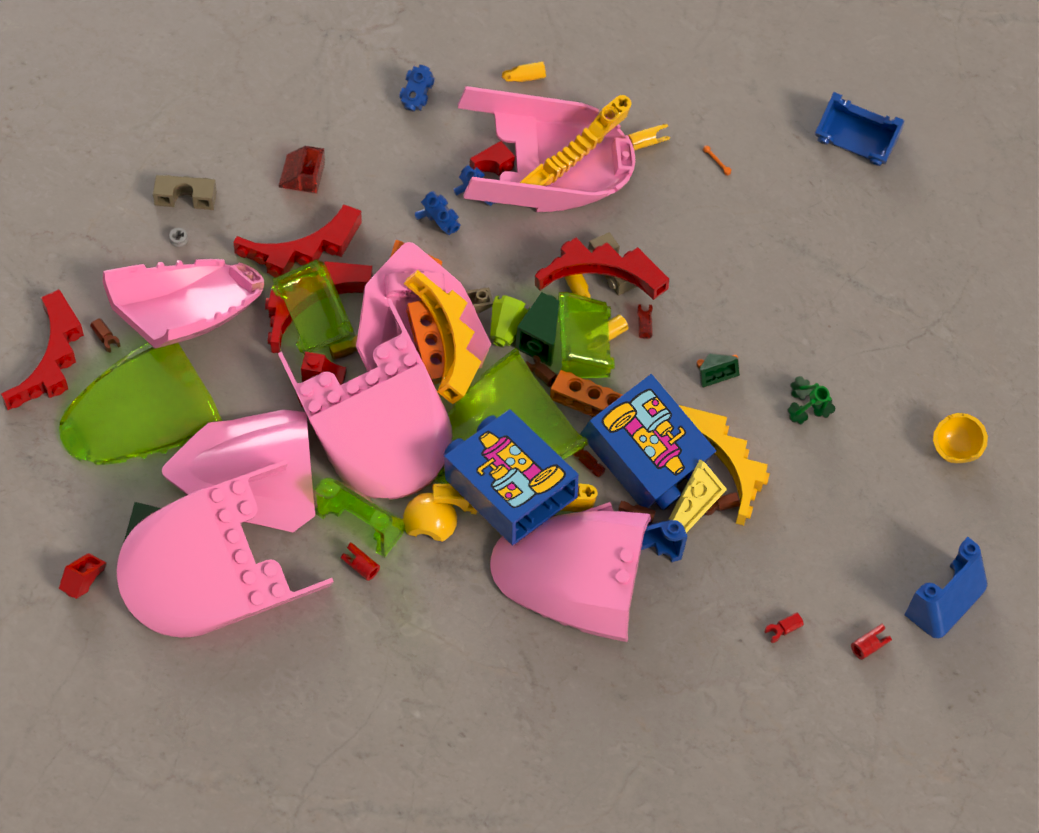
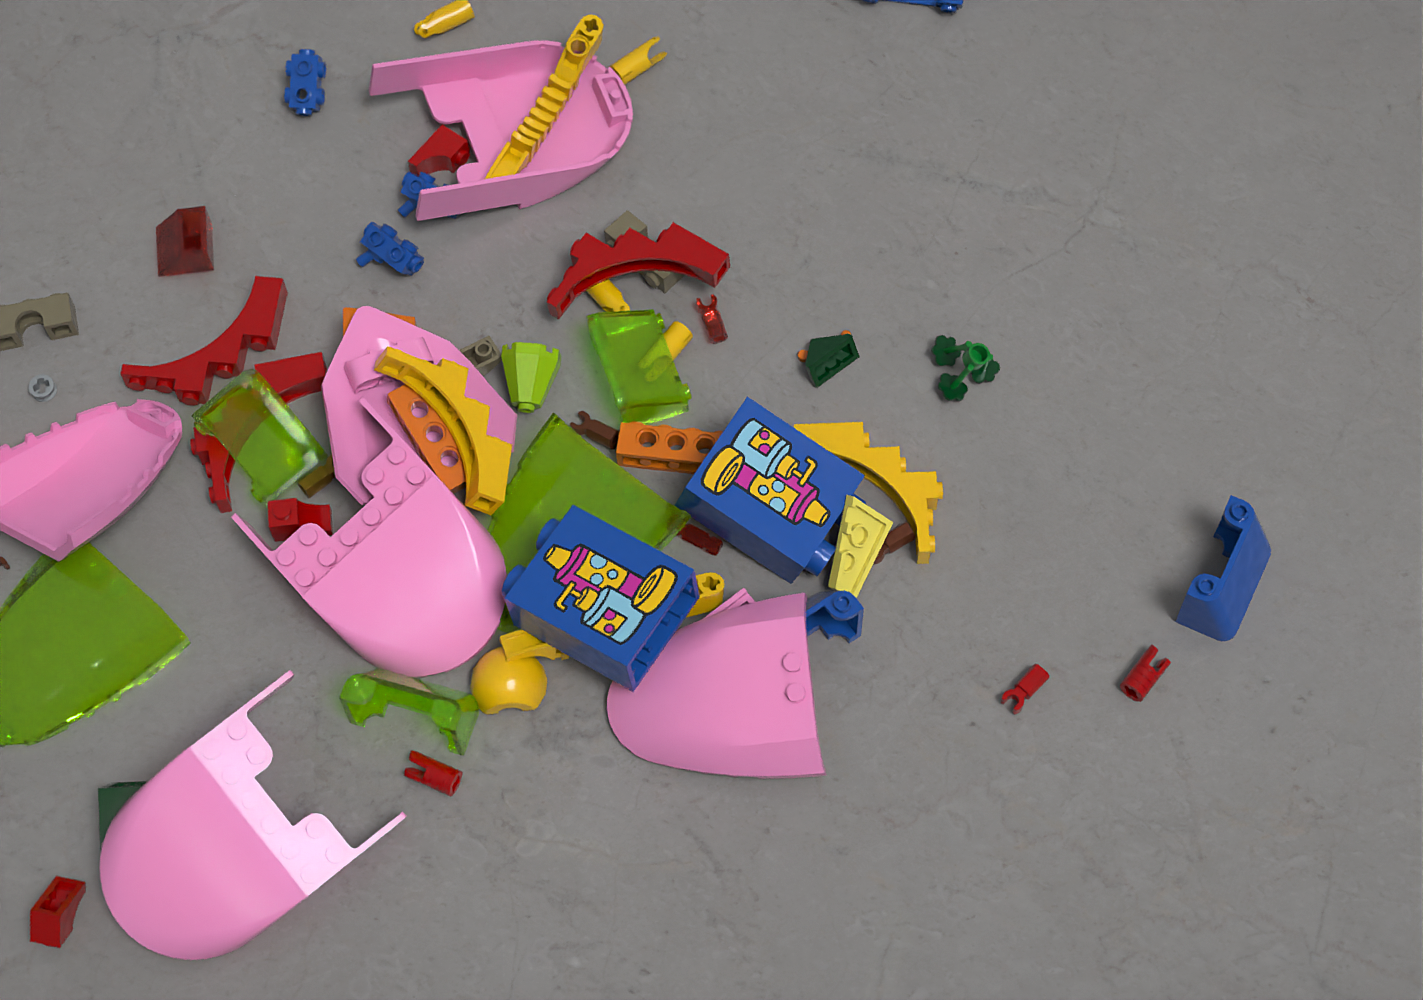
camera: 10 degrees left, 5 degrees up
(245, 445) = (227, 663): bright pink windscreen -> none
(538, 329) = (574, 374): dark green slope -> none
(627, 507) = (768, 589): copper bar -> none
(727, 170) = (756, 77): orange hinge -> none
(960, 438) = (1176, 359): yellow cylinder -> none

